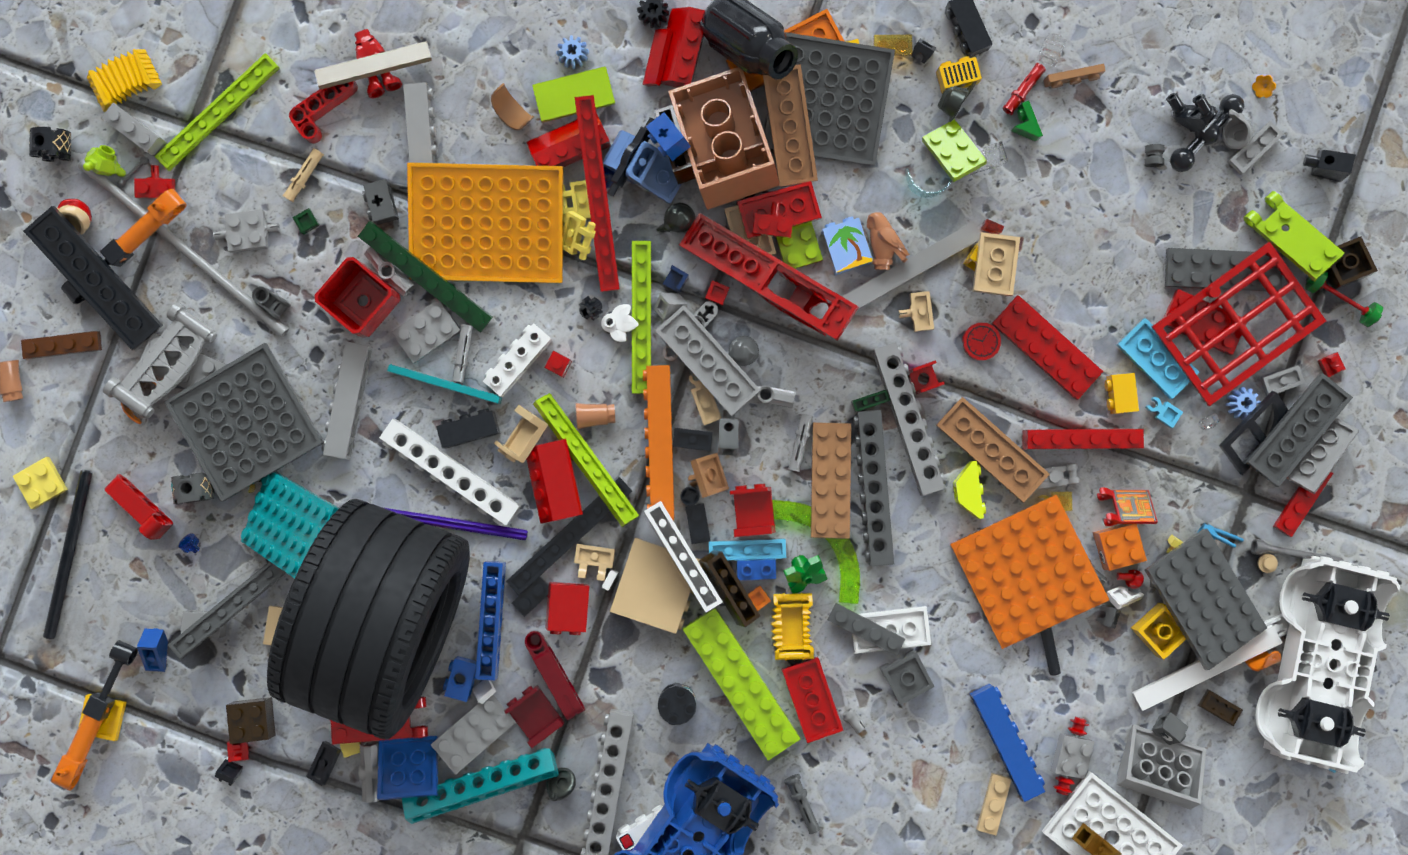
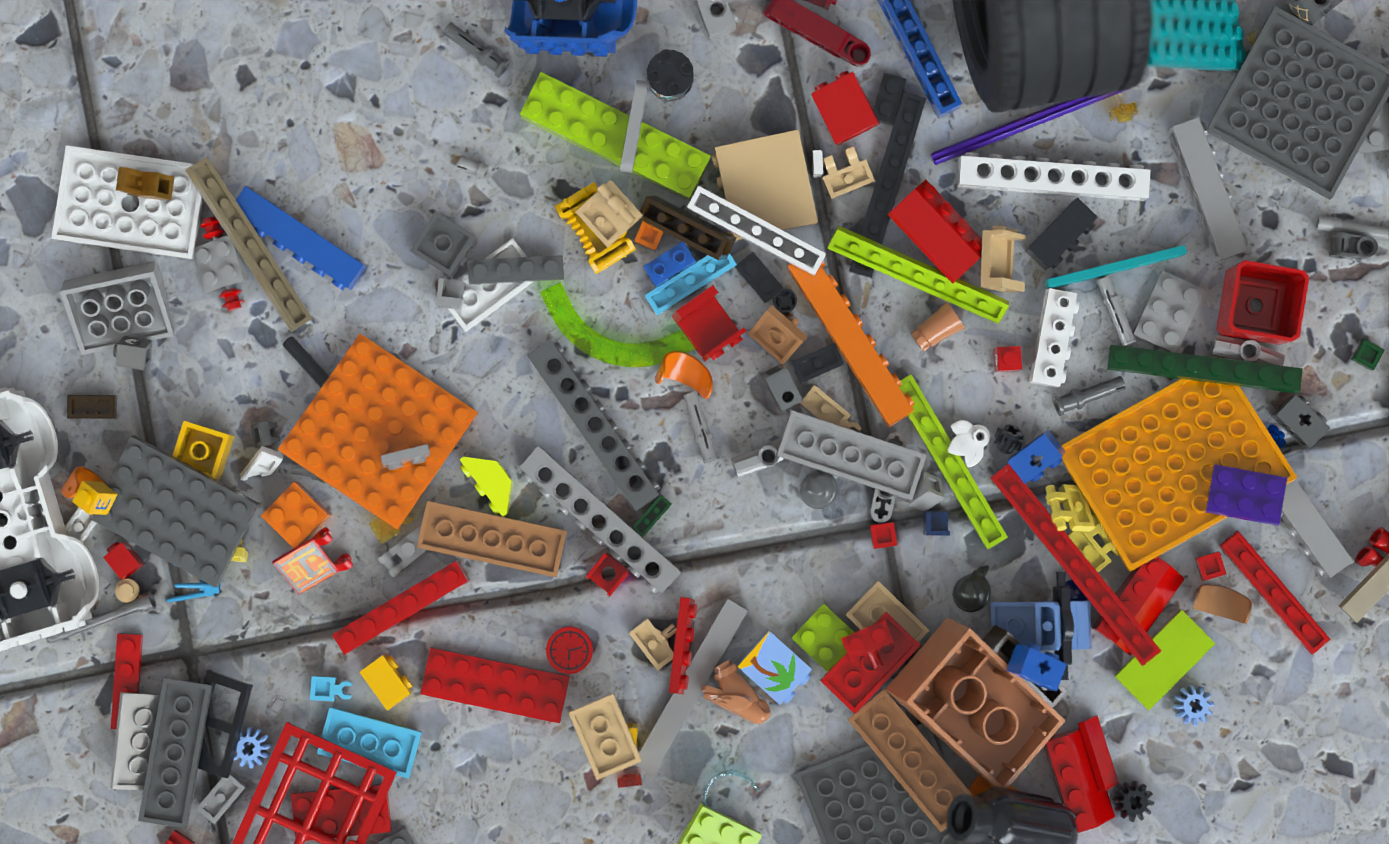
camera: 145 degrees right, 0 degrees up
(373, 488) = (1123, 113): none -> clear yellow plate
(403, 202) = (1277, 435): none -> clear blue plant
(450, 170) = (1246, 495): none -> dark purple plate
(470, 96) = (1274, 592): none -> red tile
(503, 139) = (1210, 566): none -> red plate
(524, 308) = (1079, 398): none -> dark grey pin
(569, 289) = (1043, 445): none -> blue brick
(725, 682) = (634, 126): none -> light grey beam
(756, 270) = (856, 582): red piece -> none
(778, 630) = (609, 213): none -> tan plate
(787, 488) = (687, 370): none -> orange piece
(803, 572) = (616, 291): green plant -> none
(812, 699) = (529, 163): red plate -> none
(831, 480) = (644, 405): medium nougat plate -> none
(897, 303) = (681, 655): none -> red plate
(922, 639) = (450, 293): none -> light grey panel
(993, 804) = (274, 166): tan plate -> none
(1015, 539) = (415, 454): none -> light grey plate
(1046, 759) = (248, 244): none -> dark tan plate
(1133, 578) = (261, 489): red plate -> none
(1195, 673) = (140, 424): white tile -> none
(1258, 586) = (123, 559): none -> red brick
(1259, 641) = (94, 497): none -> yellow brick

